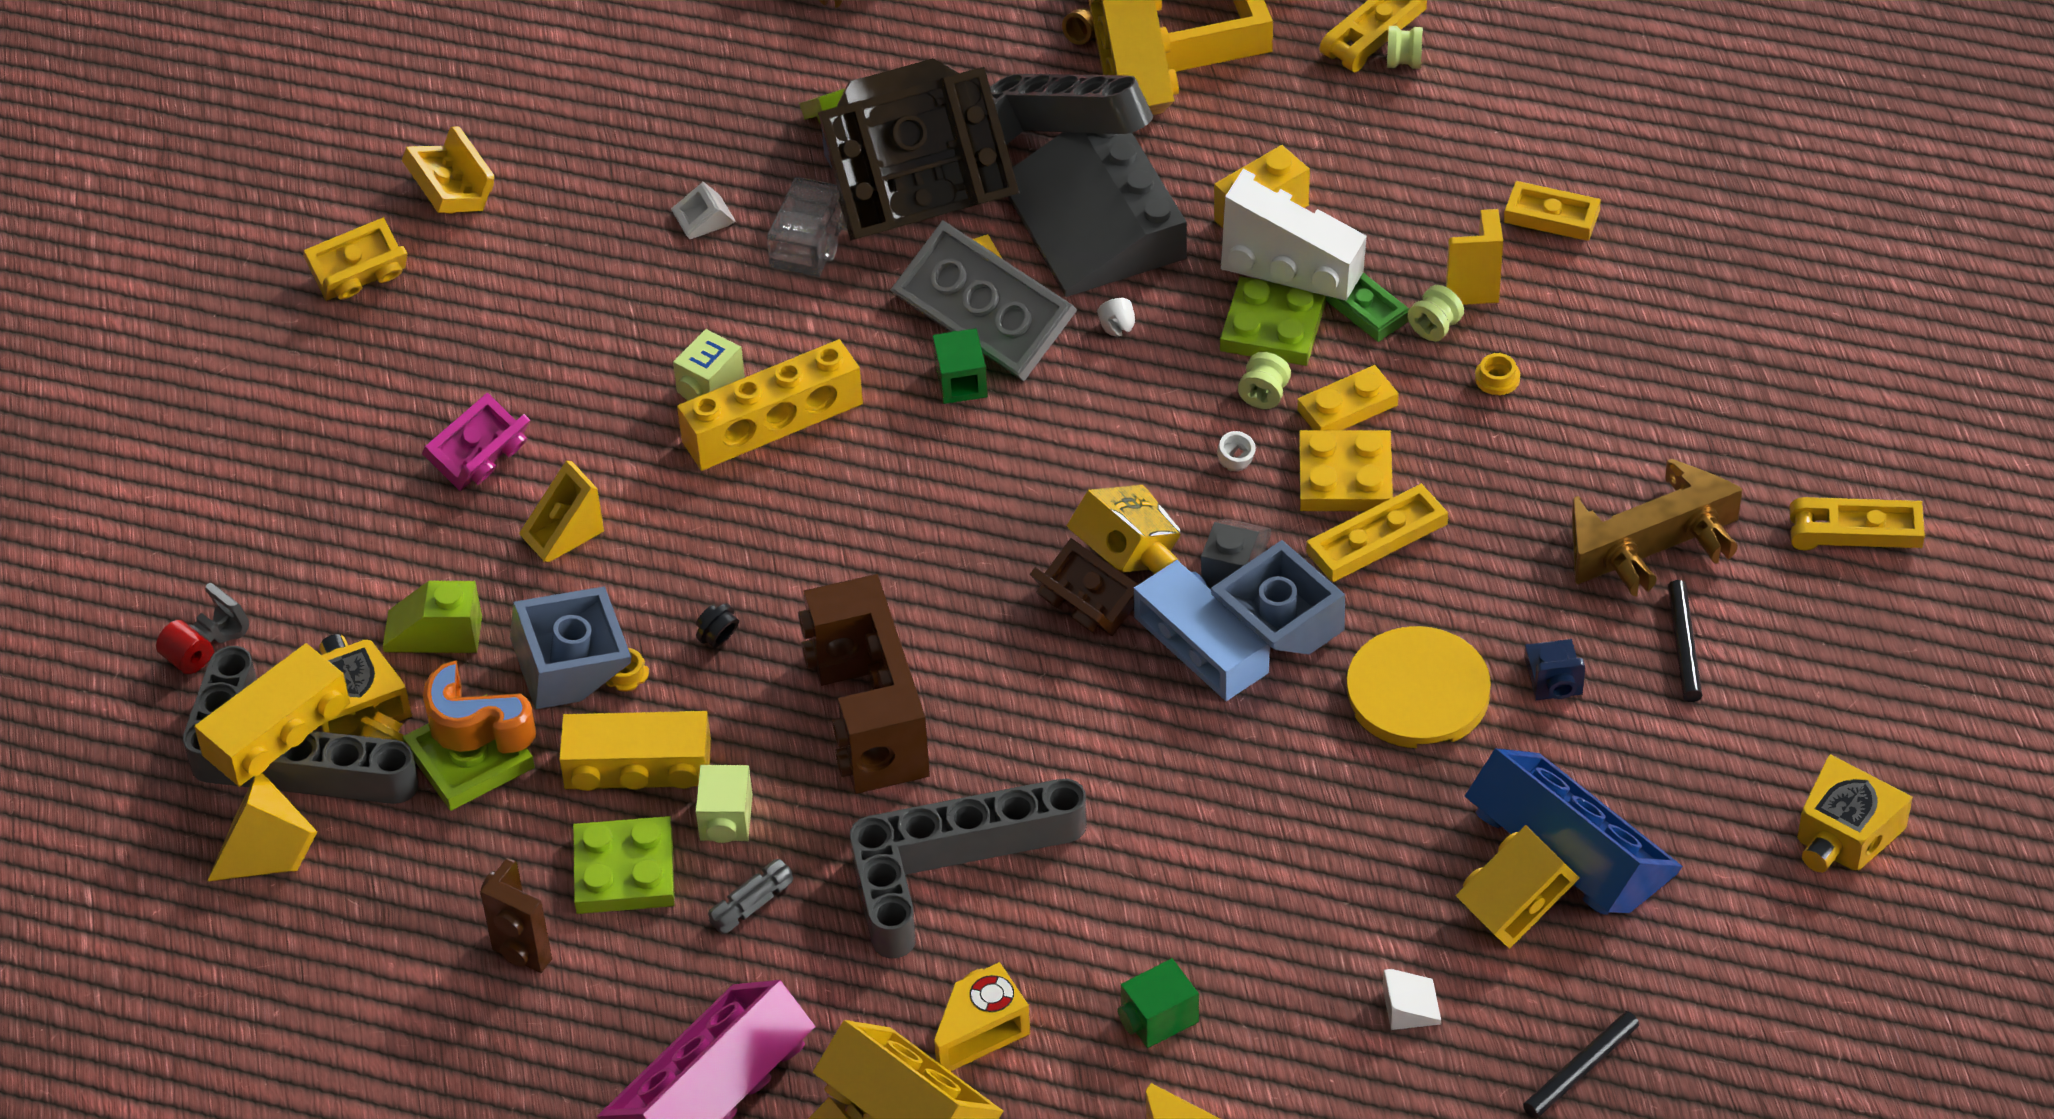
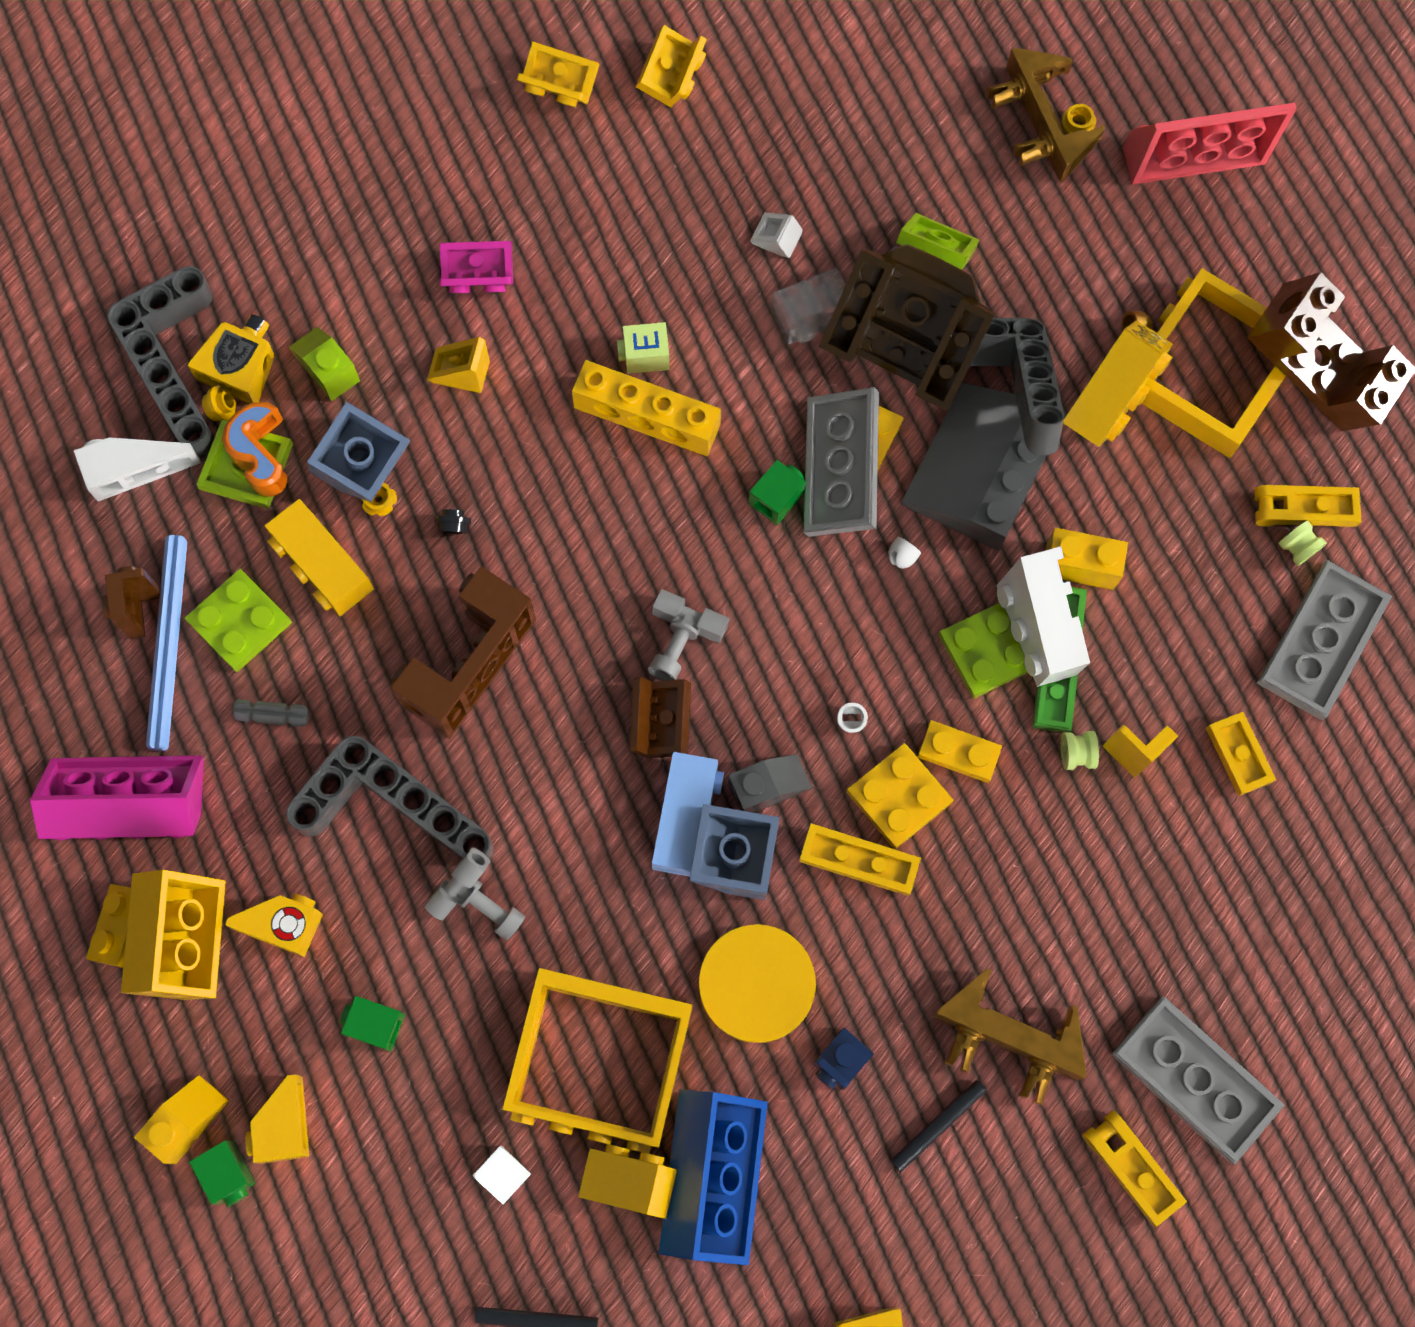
camera: 45 degrees right, 25 degrees up
(190, 645) = (198, 241): leg -> none
(264, 835) = (95, 403): yellow slope -> none
(272, 714) = (154, 342): yellow brick -> none
(358, 843) = (123, 464): none -> white slope
(599, 948) = (166, 643): none -> light blue axle
(724, 803) = (319, 642): yellowish green brick -> none
(1017, 518) = (686, 626): none -> light grey bar
(1103, 836) = (465, 889): none -> light grey bar
(1126, 528) = (720, 709): yellow torso -> none
(1264, 380) = (926, 688): yellowish green wheel -> none
(1337, 787) = (611, 995): none -> yellow window
(1497, 374) = (1068, 820): yellow plate -> none
(1506, 95) = (1324, 640): none -> light grey tile
(1818, 433) = (1197, 1080): none -> light grey tile

